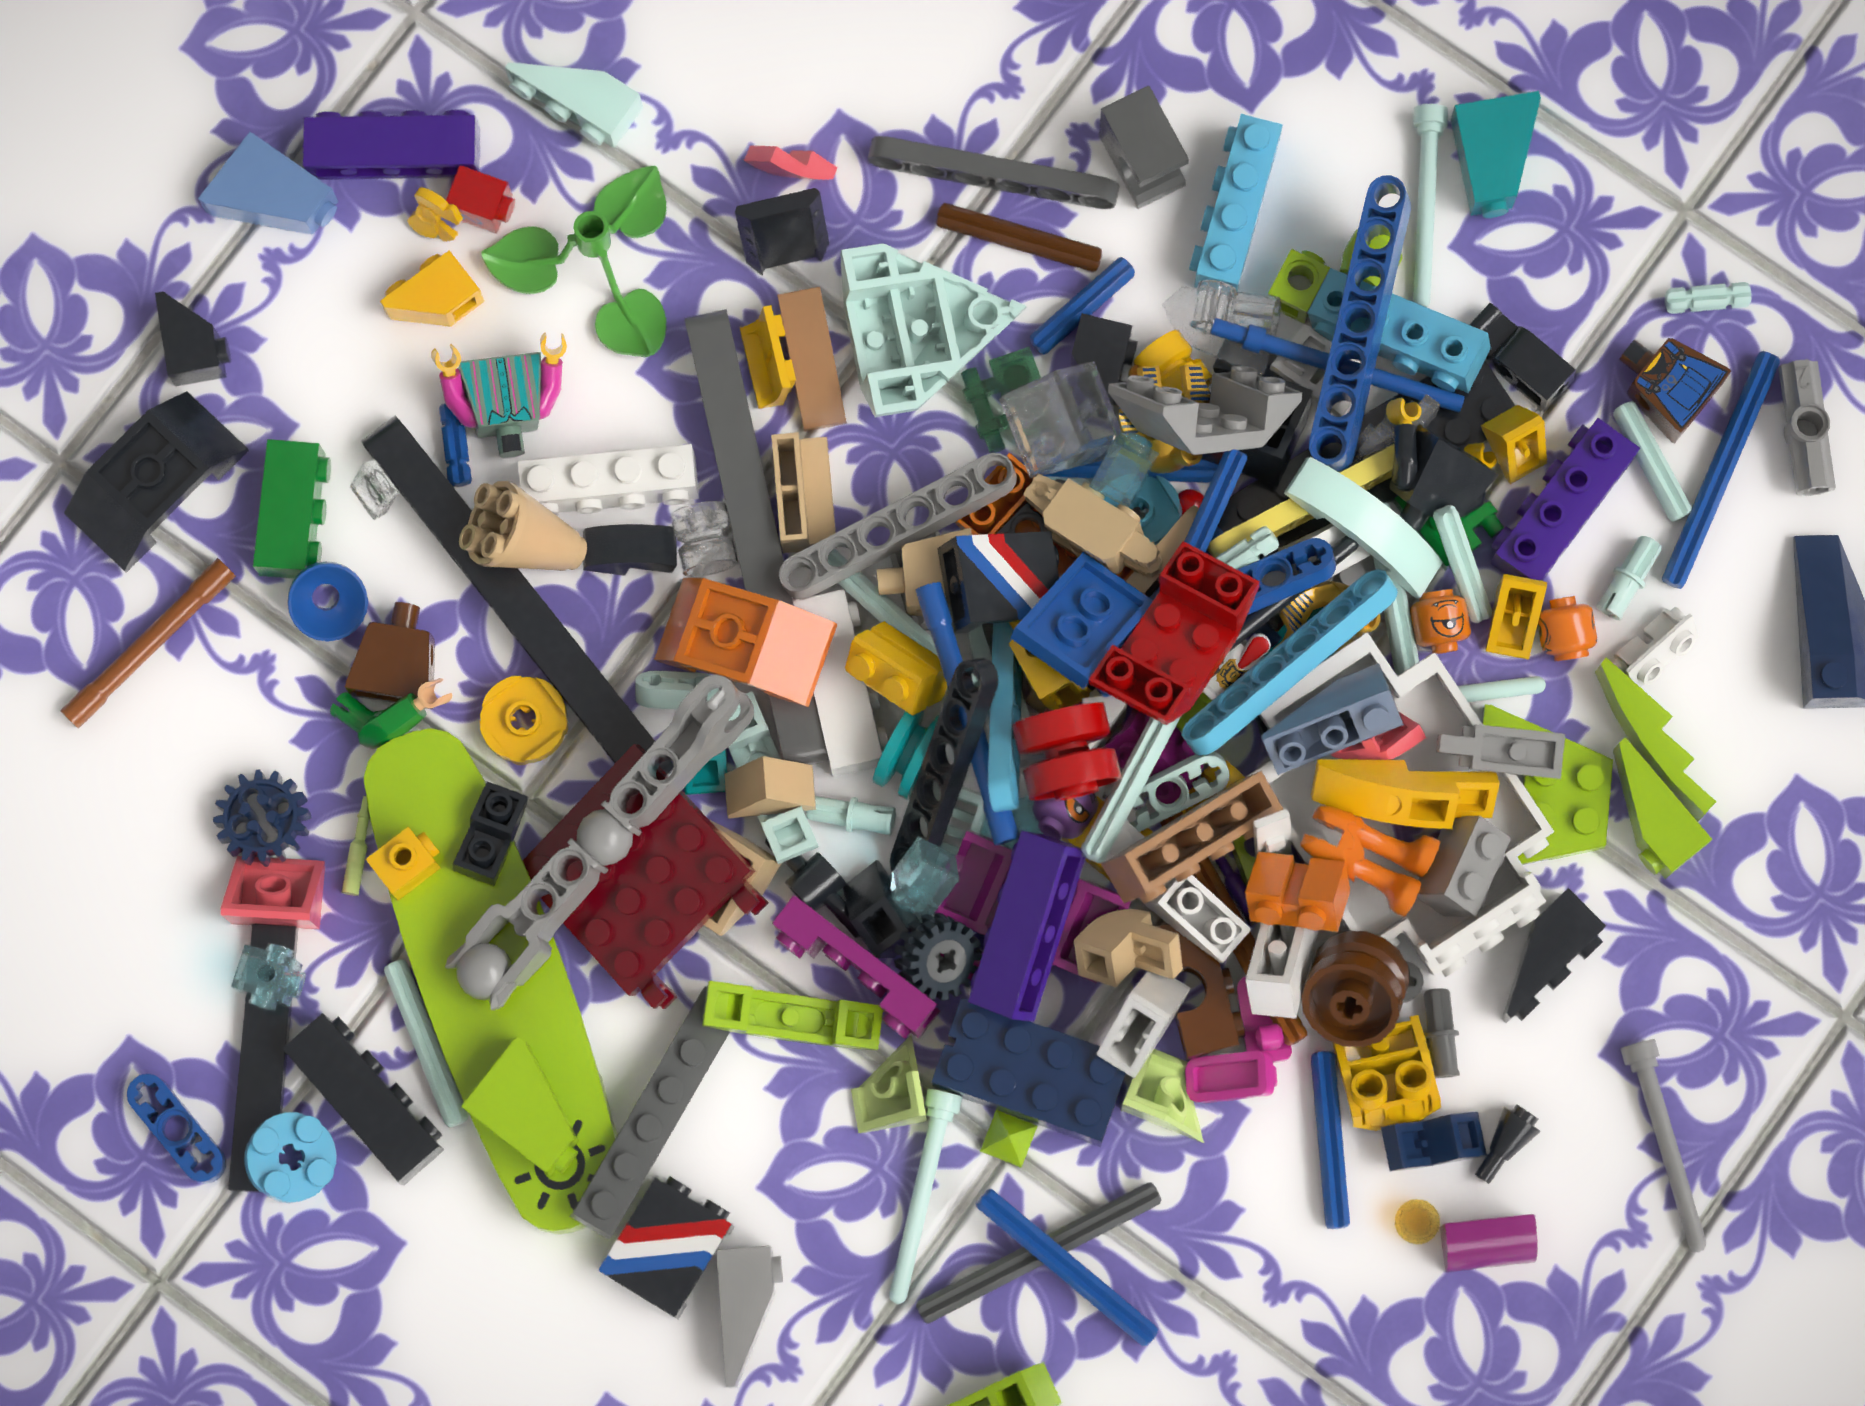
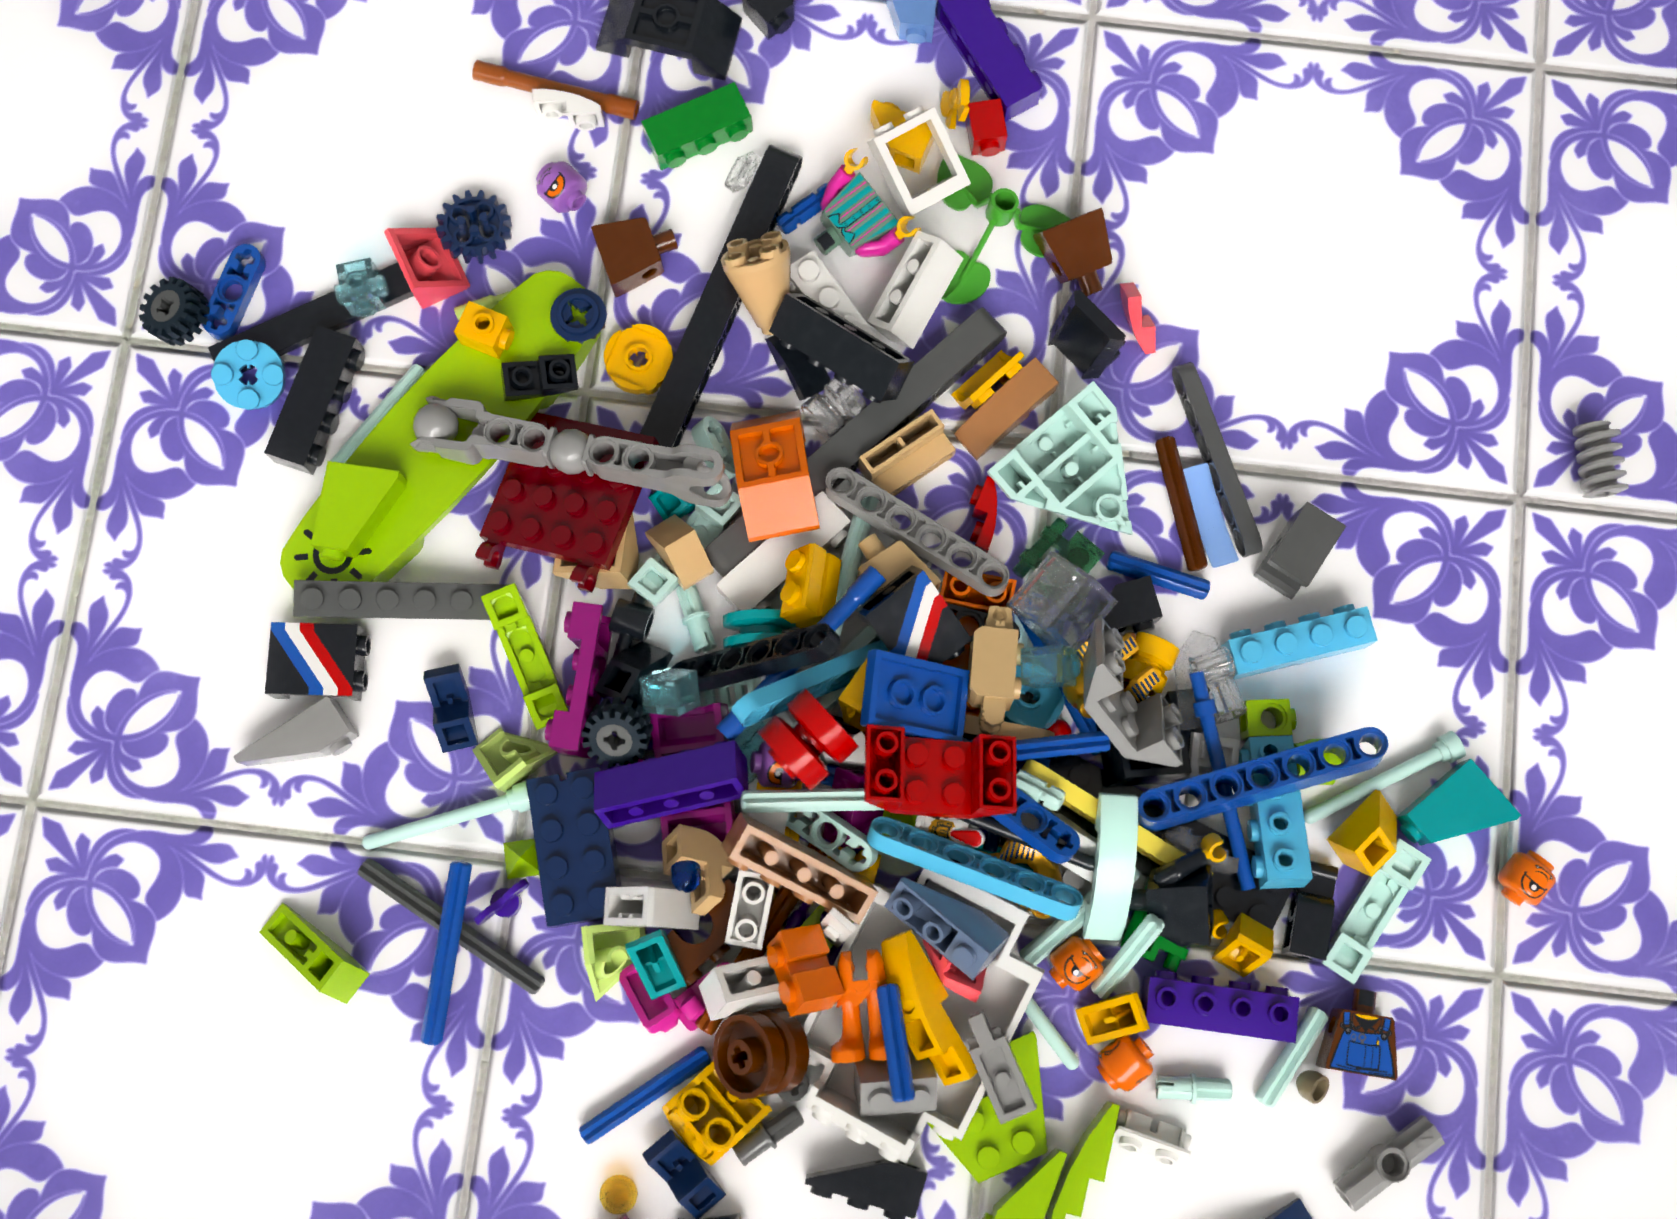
camera: 55 degrees right, 0 degrees up
(177, 1192) = (174, 311): none -> black wheel
(193, 629) = (581, 112): none -> white slope
(274, 696) = (561, 187): none -> medium lavender head
(330, 622) = (630, 183): blue piece -> none
(396, 720) = (586, 272): green arm -> none
(429, 741) = (583, 301): none -> dark blue gear
(526, 294) = (907, 204): none -> white window
(586, 97) = (1101, 155): light aqua slope -> none
(625, 378) = (915, 289): none -> white brick
(651, 491) = (841, 347): none -> black brick
(678, 182) = (1077, 249): none -> reddish brown torso
(801, 1129) = (451, 708): none -> dark blue slope
(908, 441) = (985, 503): none -> red slope
(1046, 1180) = (503, 903): none -> dark purple piece
(1049, 216) = (1209, 516): none -> light blue sticker
(1132, 962) = (686, 875): none -> clear blue hinge
(1205, 1045) = (656, 963): none -> teal slope
(1423, 836) = (895, 1043): none -> blue axle
(1474, 254) = (1367, 835): none -> yellow slope
(1550, 291) = (1372, 911): none -> light aqua slope
(1604, 123) = (1526, 878): none -> orange head
(1692, 457) = (1312, 1086): none -> dark tan hinge
(1708, 297) = (1442, 1030): light aqua axle -> none
(1721, 470) = (1318, 1113): blue axle -> none

